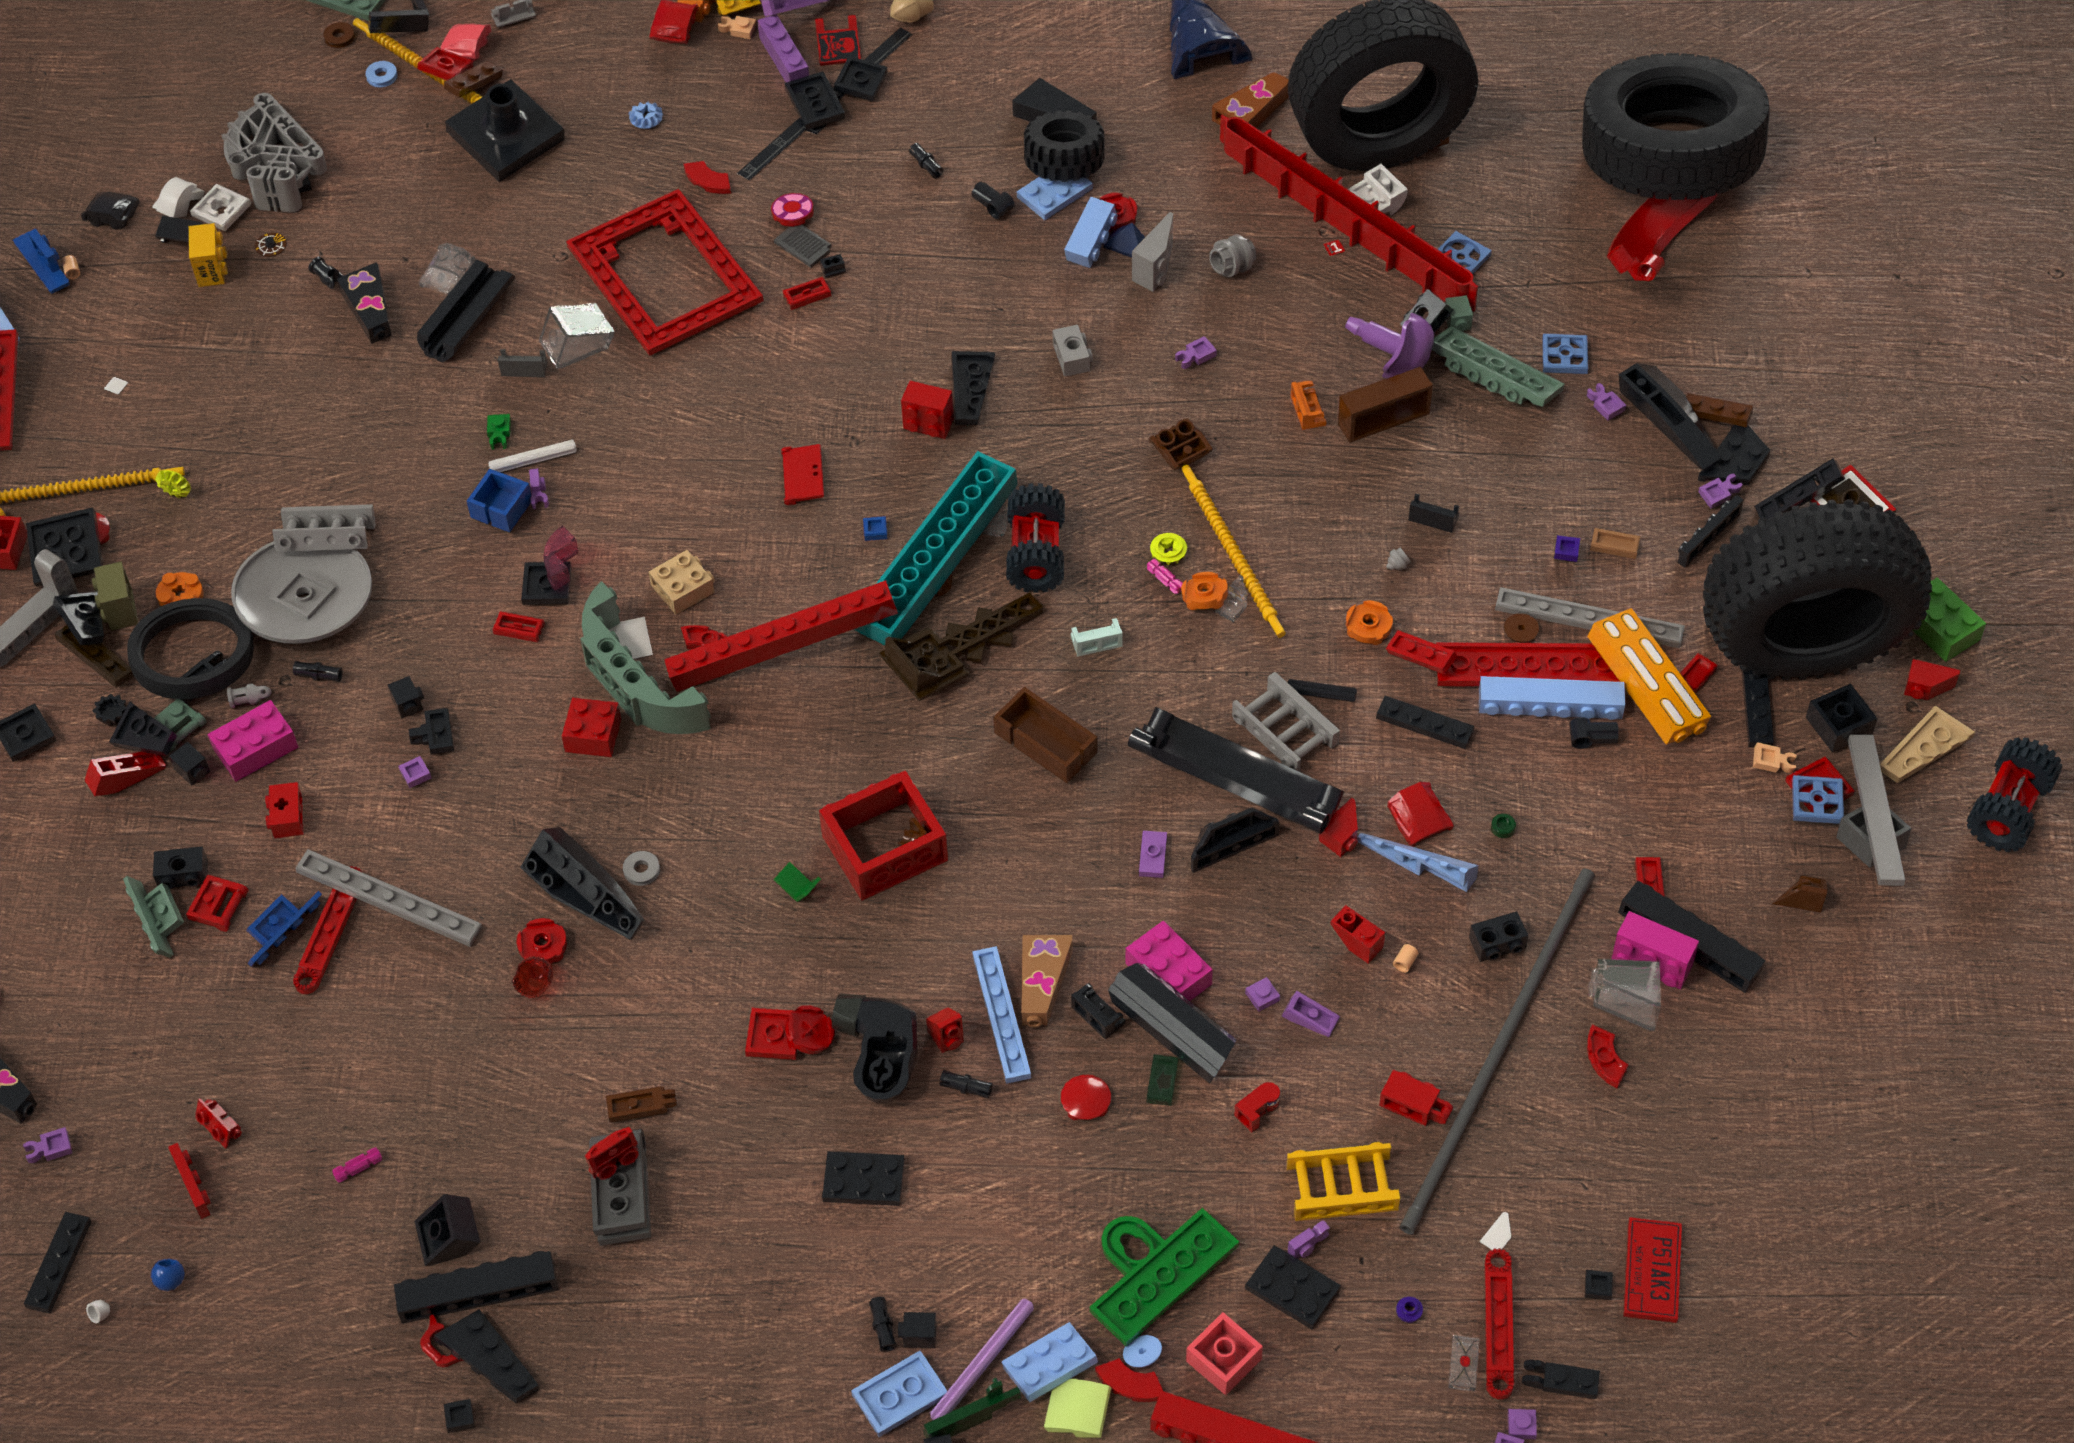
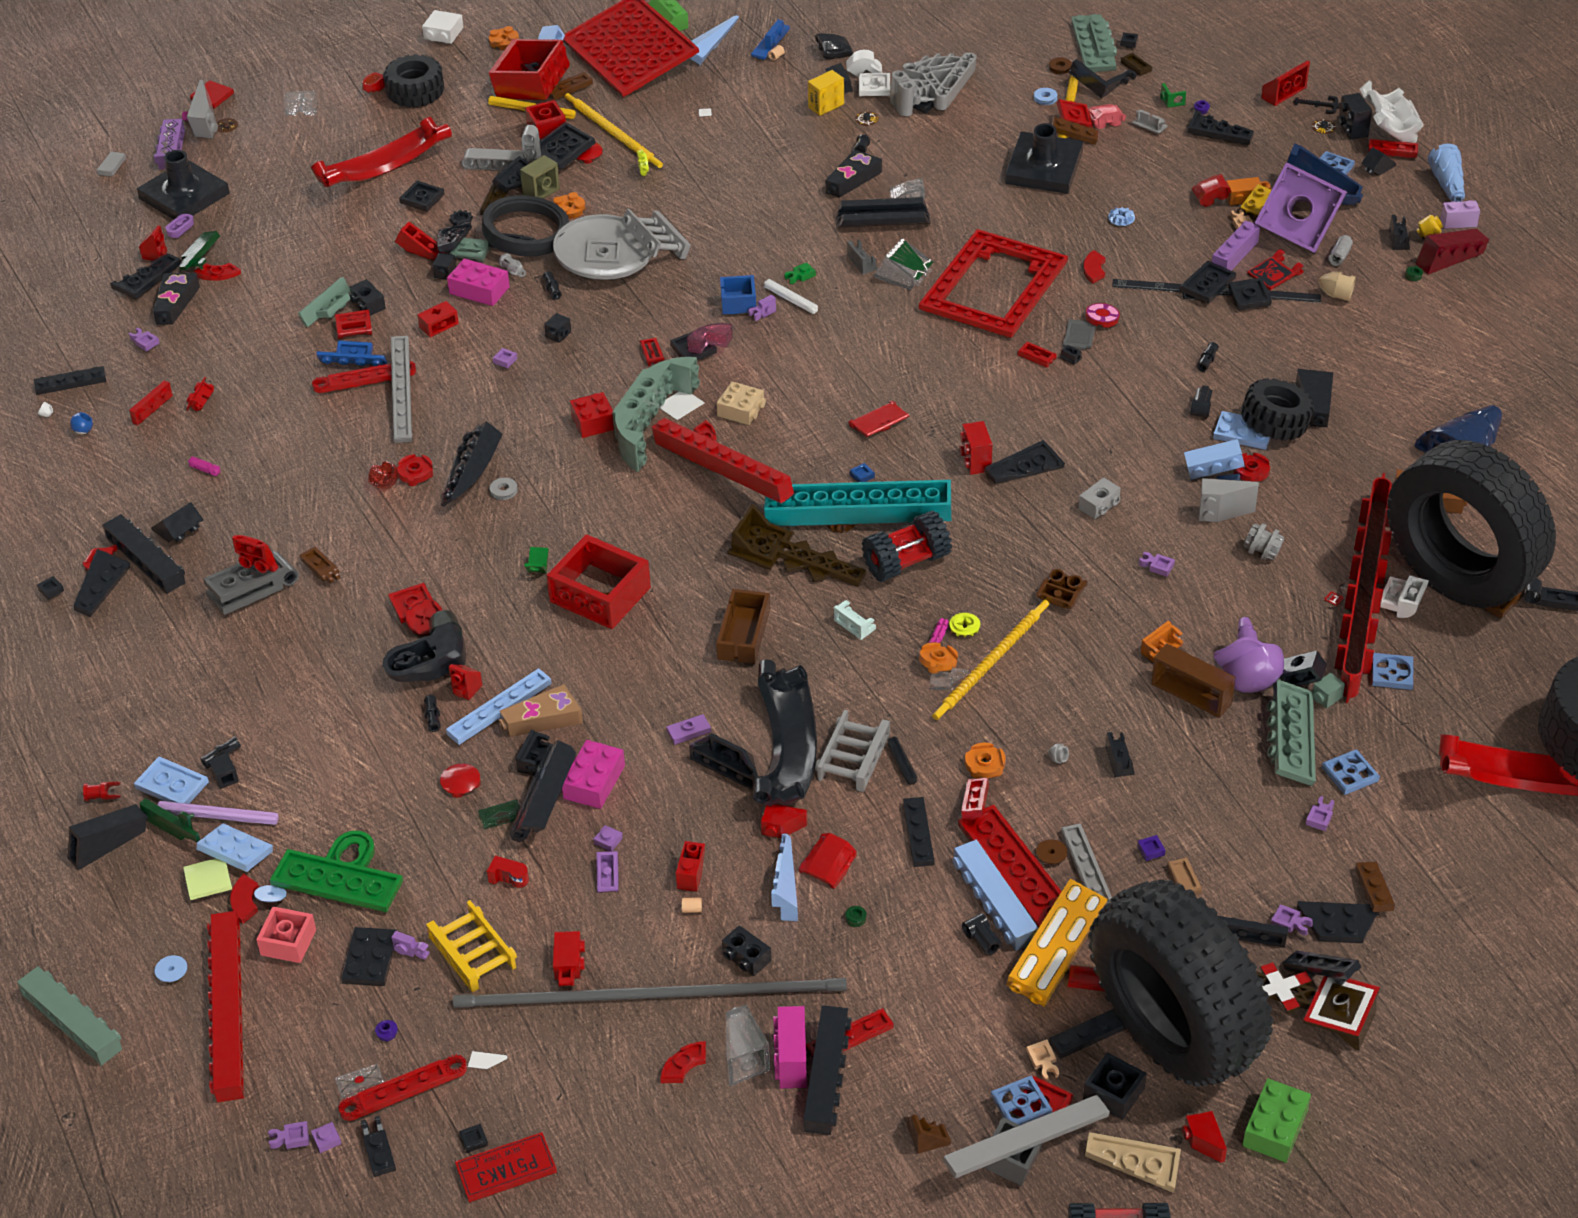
camera: 60 degrees right, 10 degrees down
(434, 732) = (541, 353): black hinge -> none
(863, 1178) = (328, 696): black plate -> none
(1669, 411) = (1341, 853): black wedge -> none

